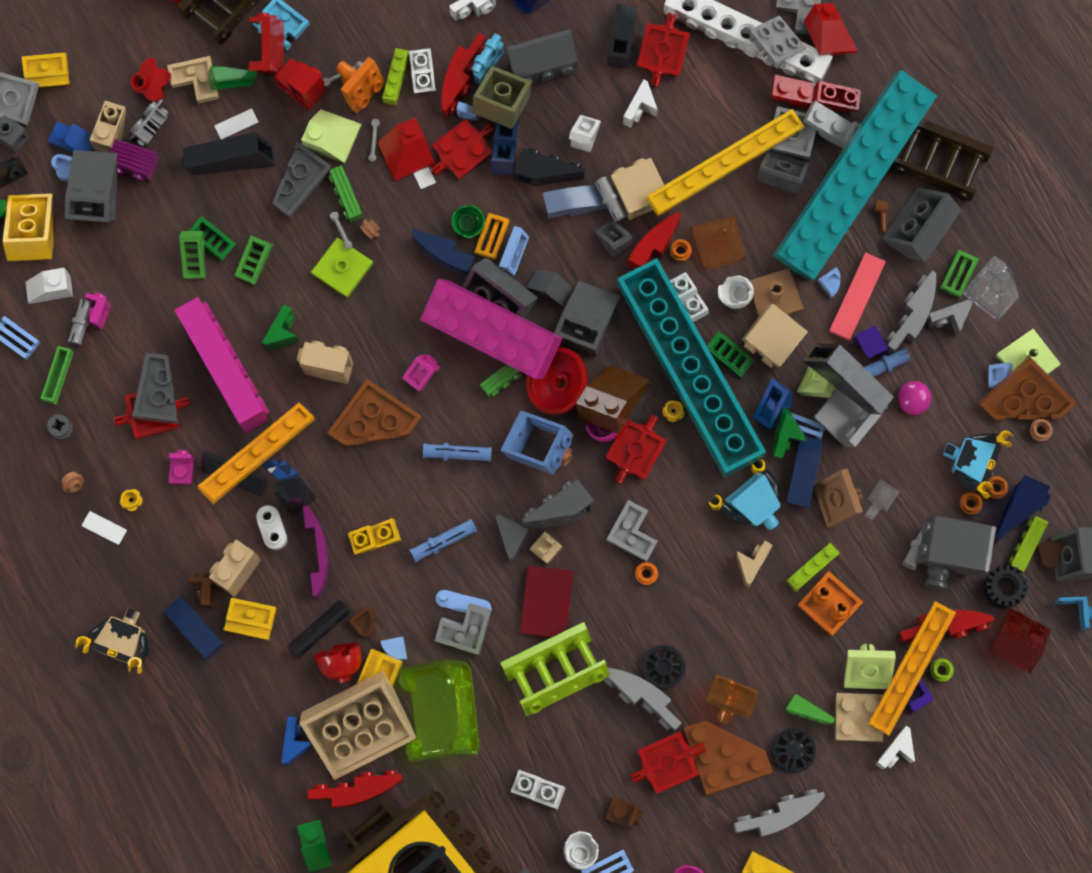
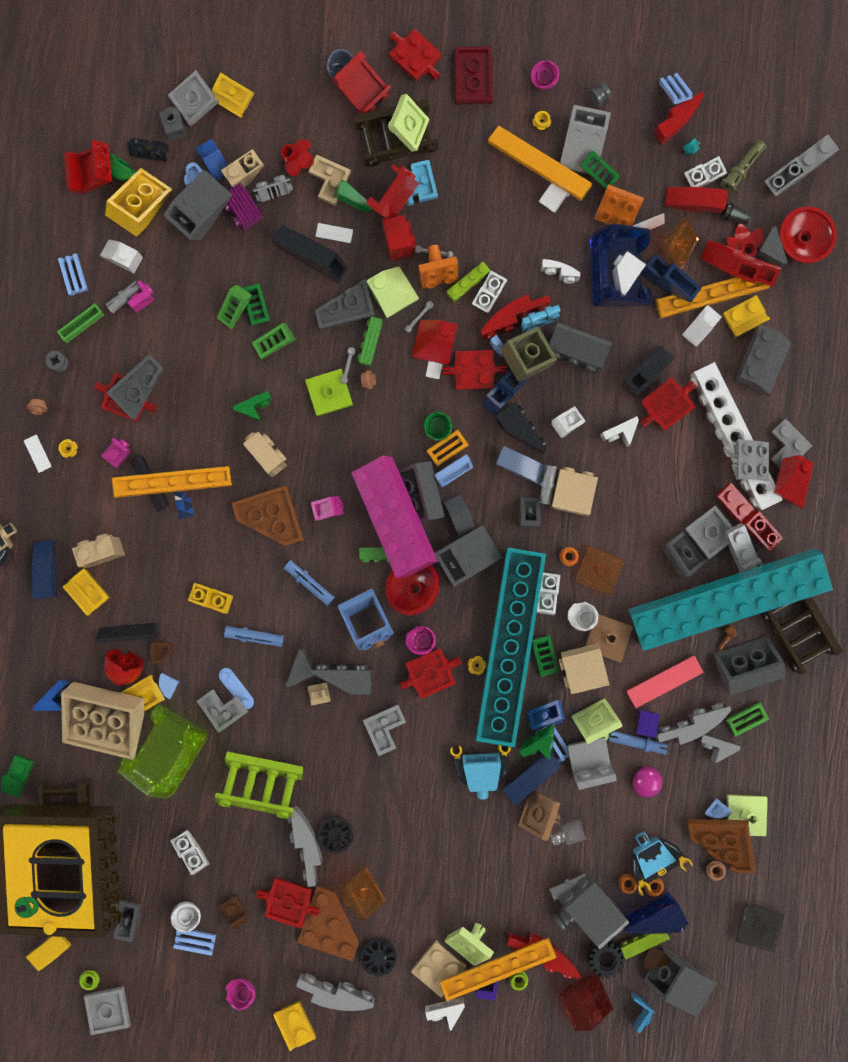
camera: 30 degrees right, 10 degrees up
(206, 592) = (67, 553): reddish brown bracket -> none
(220, 362) = (194, 402): dark pink brick -> none
(271, 527) = (149, 540): white plate -> none
(293, 494) = (174, 531): black slope -> none
(319, 578) = (175, 558): magenta slope -> none
(366, 789) = (76, 766): red slope -> none
(444, 252) = (405, 435): dark blue slope -> none
(546, 601) = (291, 731): dark red tile -> none
(611, 398) = (440, 627): reddish brown slope -> none
(646, 566) = (372, 769): orange plate -> none
(654, 242) = (554, 538): red slope -> none
(724, 162) = (647, 520): yellow tile -> none
(749, 567) = (446, 815): tan slope -> none
(800, 707) = (405, 936): bright green slope -> none
(812, 567) = (486, 845): lime piece -> none
(830, 282) = (654, 657): light blue tile -> none
(830, 603) = (479, 879): orange plate -> none
(849, 377) = (610, 743): slope -> none
(993, 288) = (761, 750): clear slope -> none

